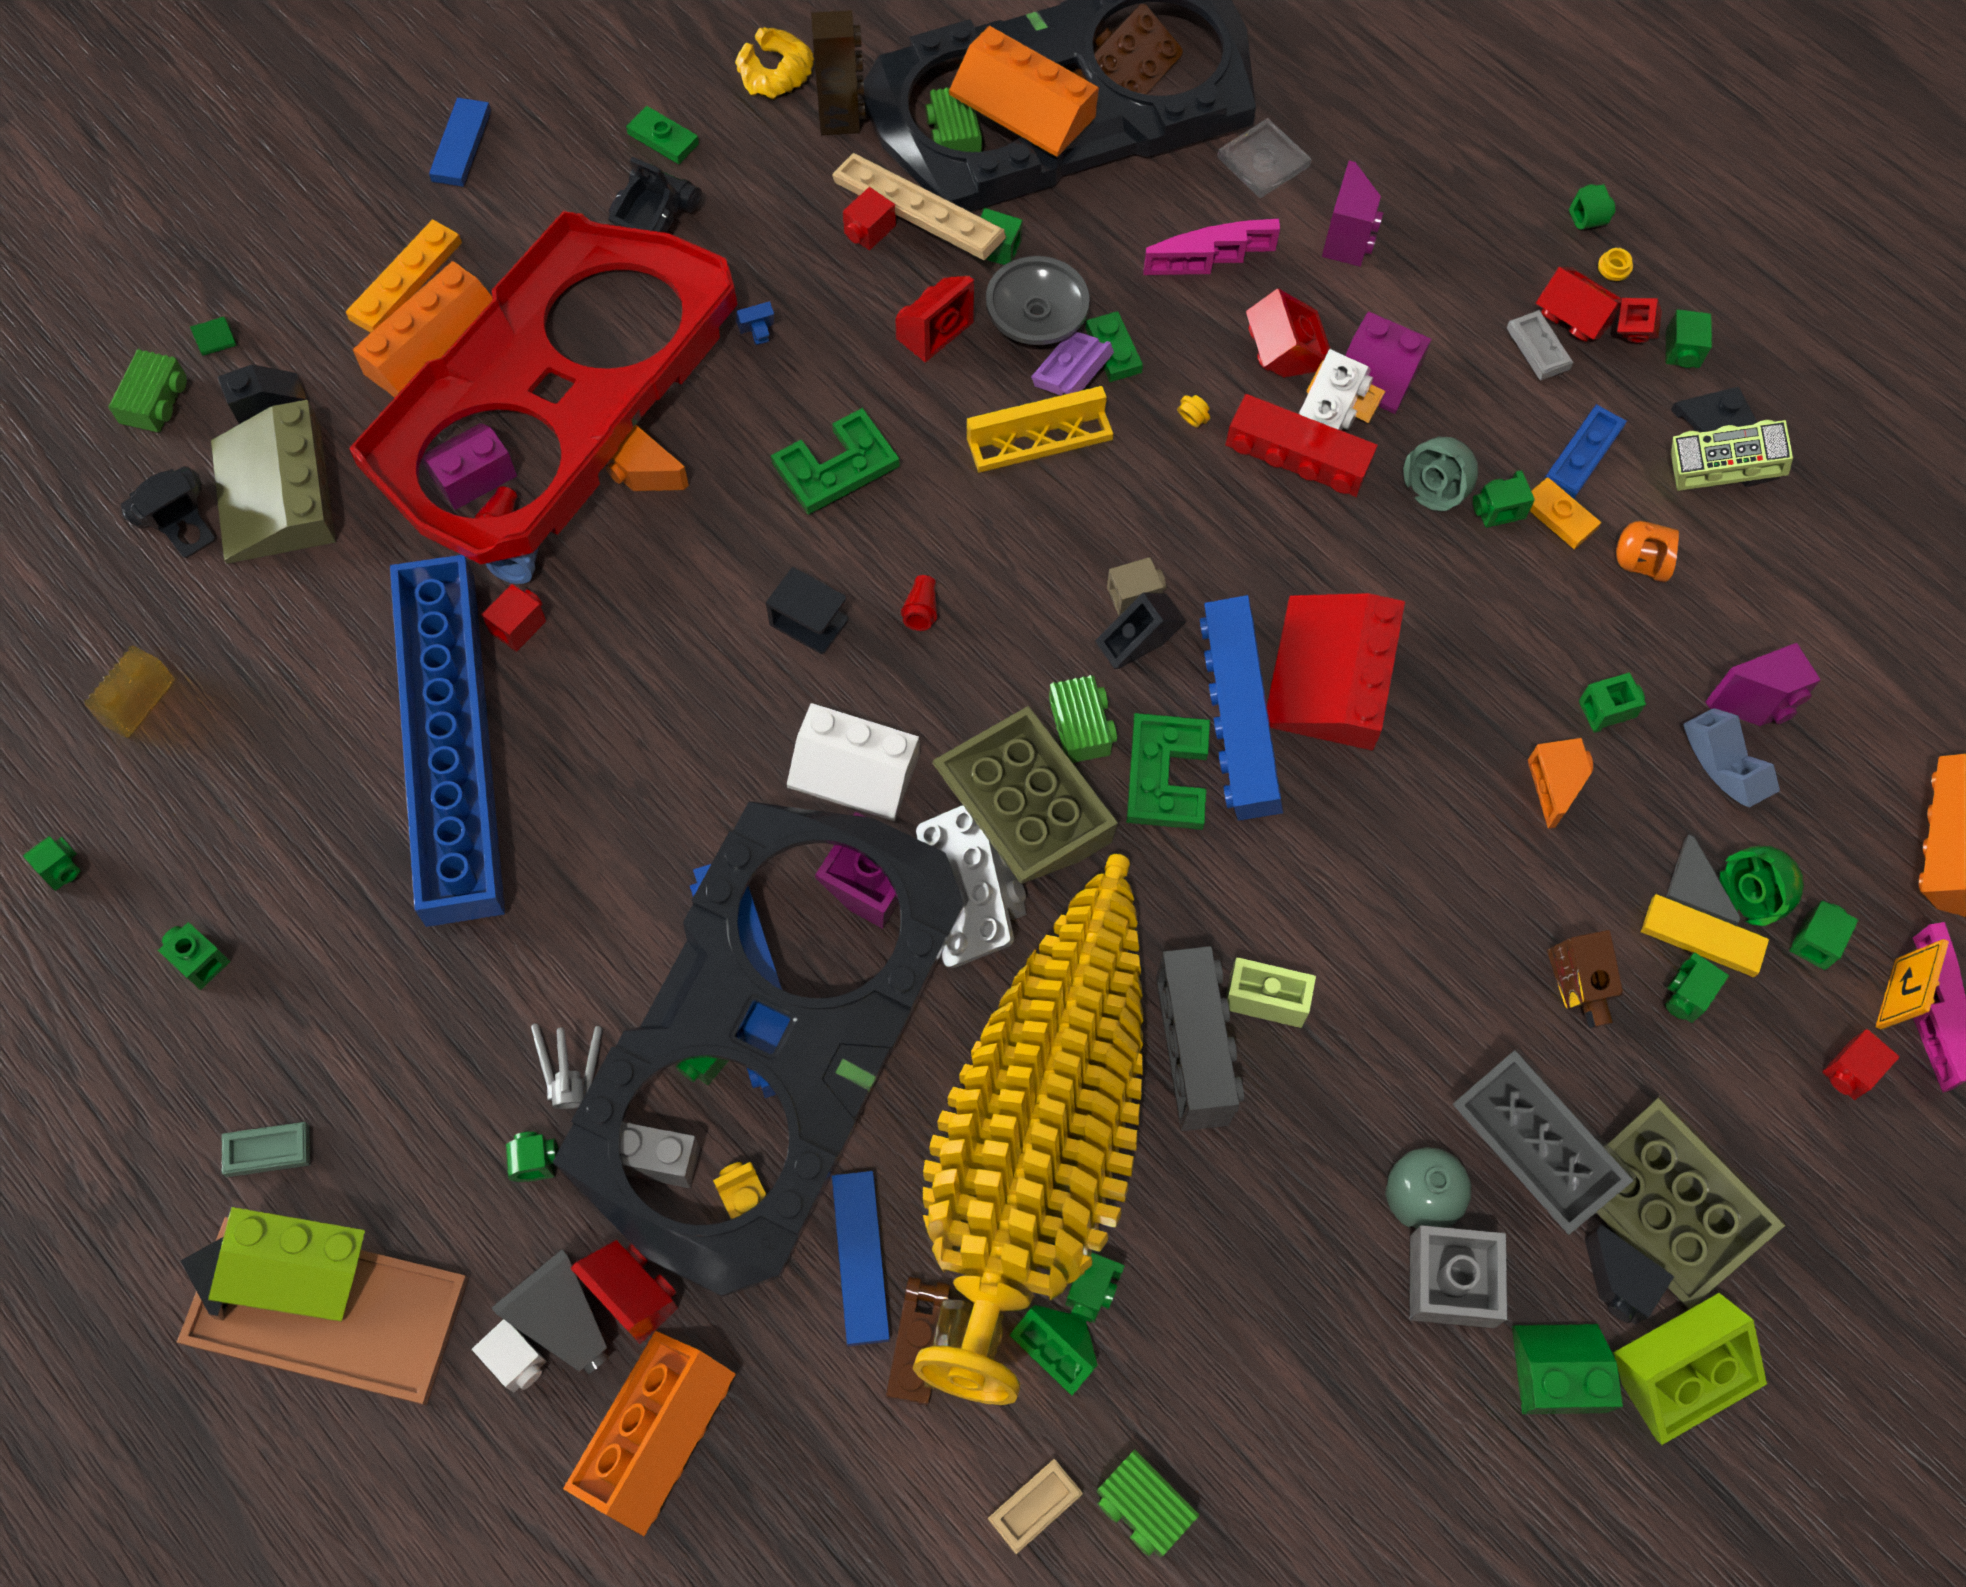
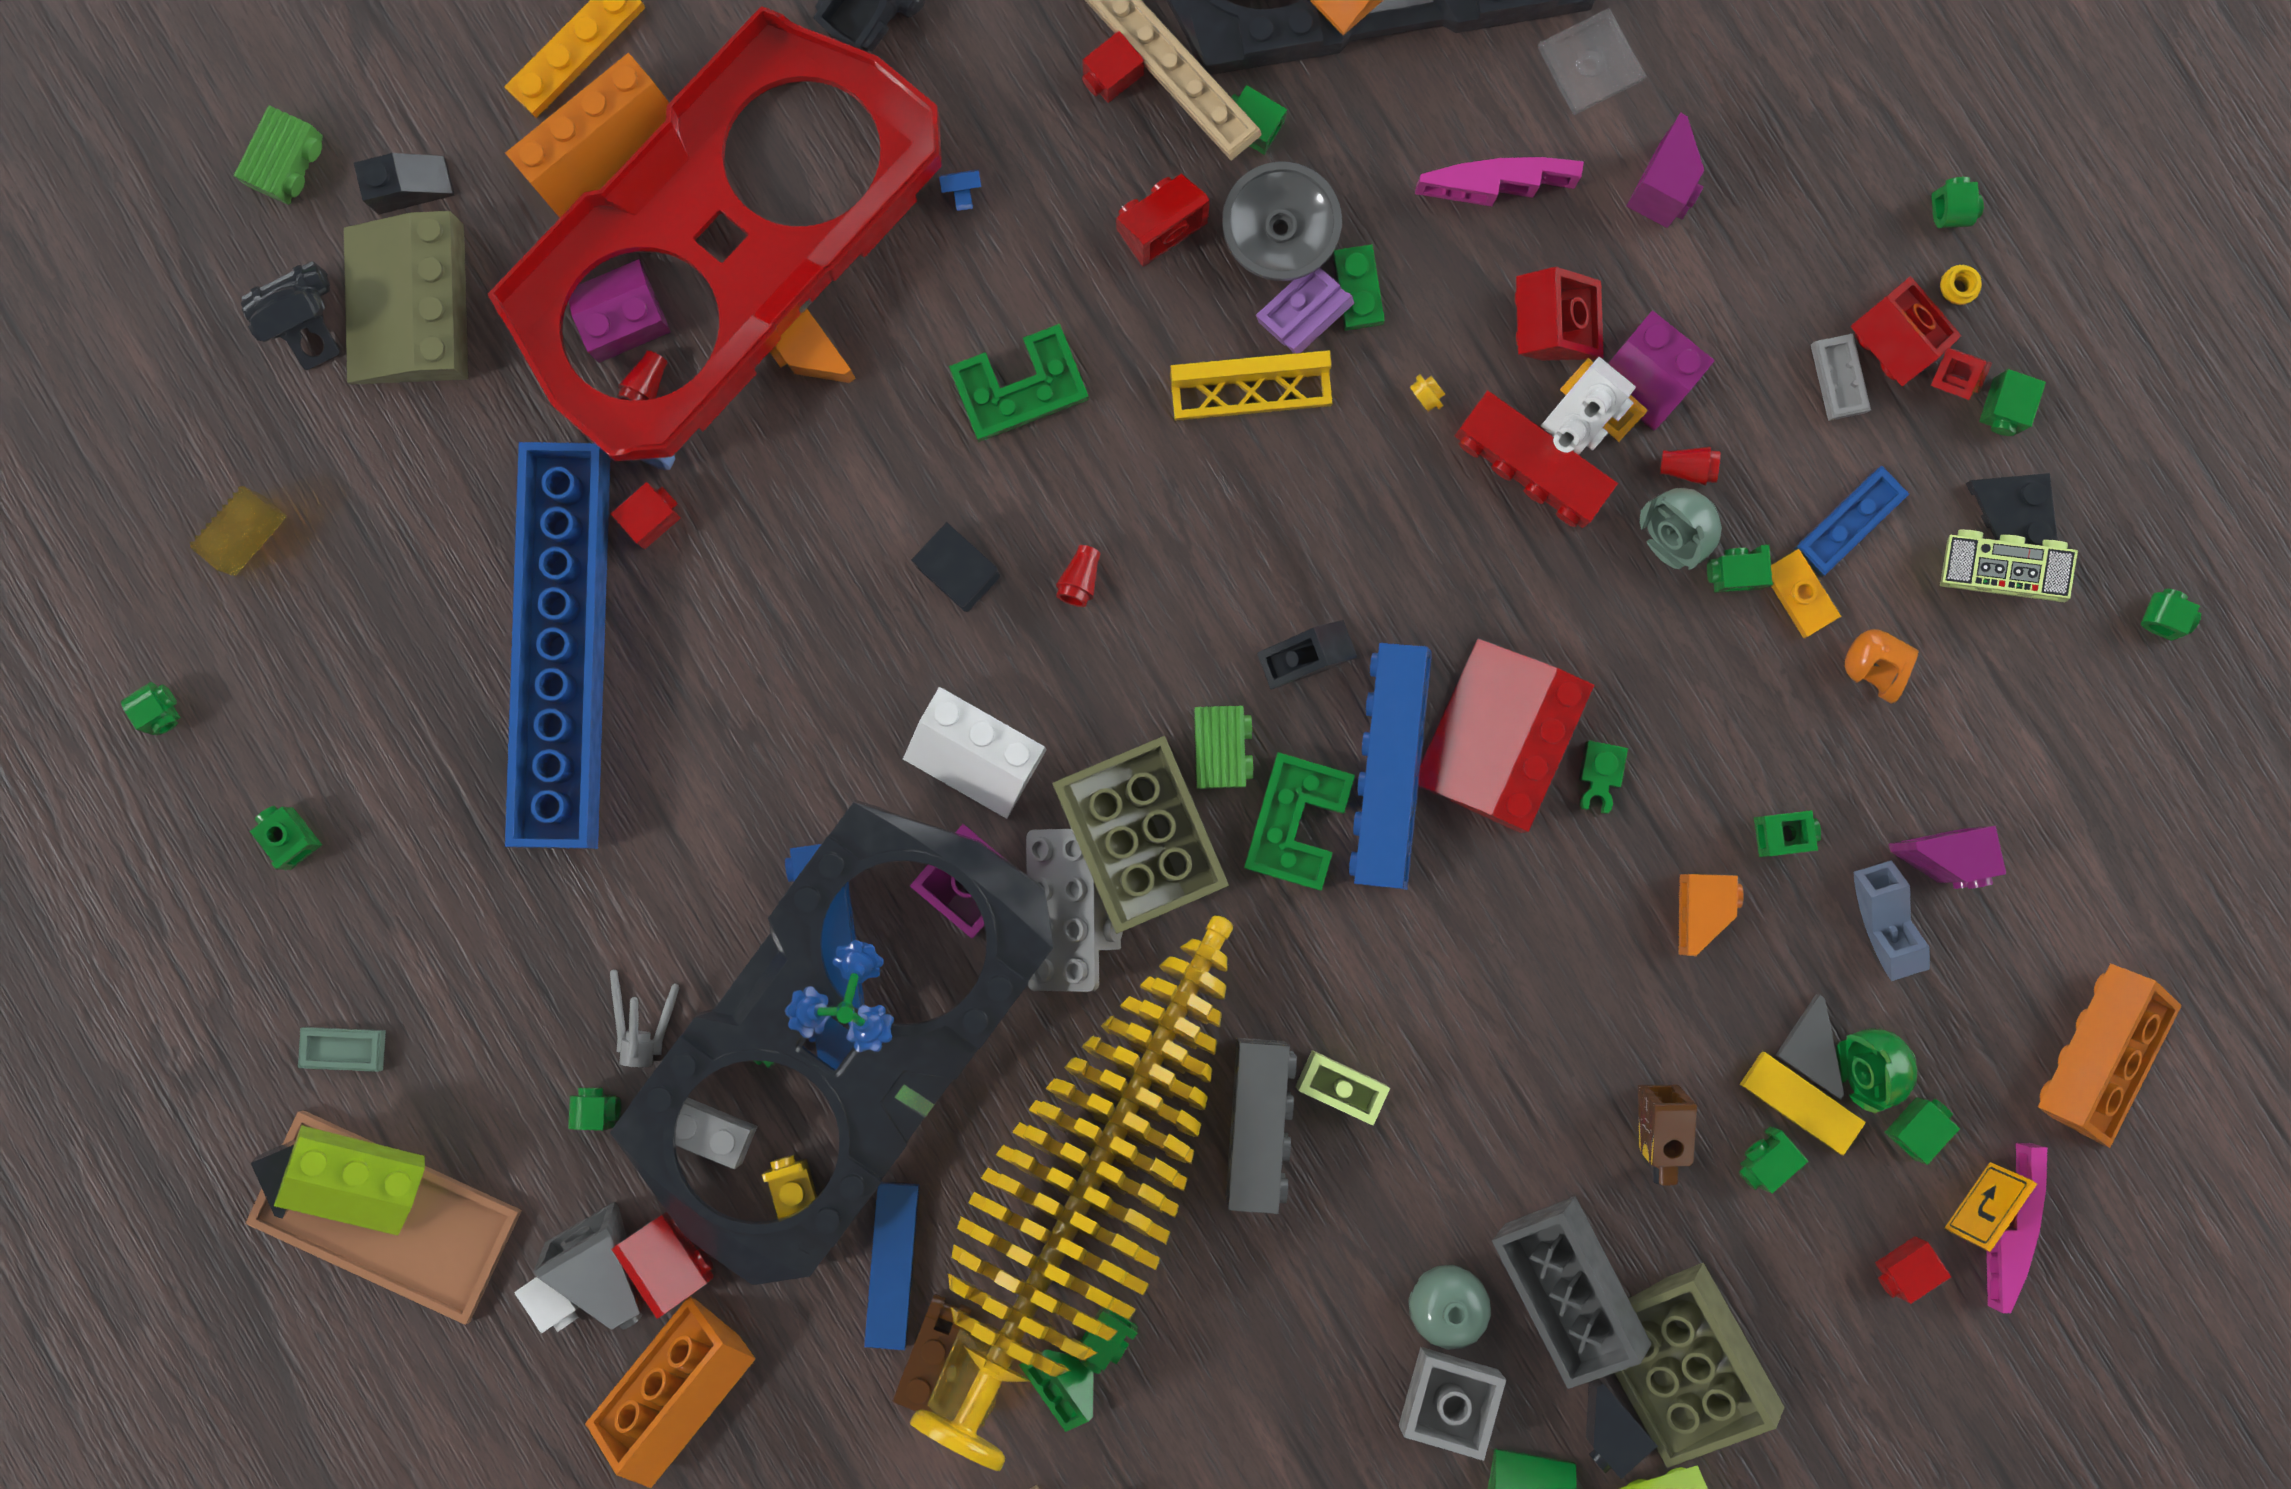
camera: 10 degrees right, 20 degrees up
(213, 335) = (355, 88): green slope -> none
(777, 942) = (868, 1027): none -> blue plant
(1131, 580) = (1314, 601): dark tan brick -> none
(1433, 683) = (1602, 767): none -> green plate
(1439, 424) = (1693, 464): none -> red cone
(1881, 474) = (2171, 615): none -> green plate

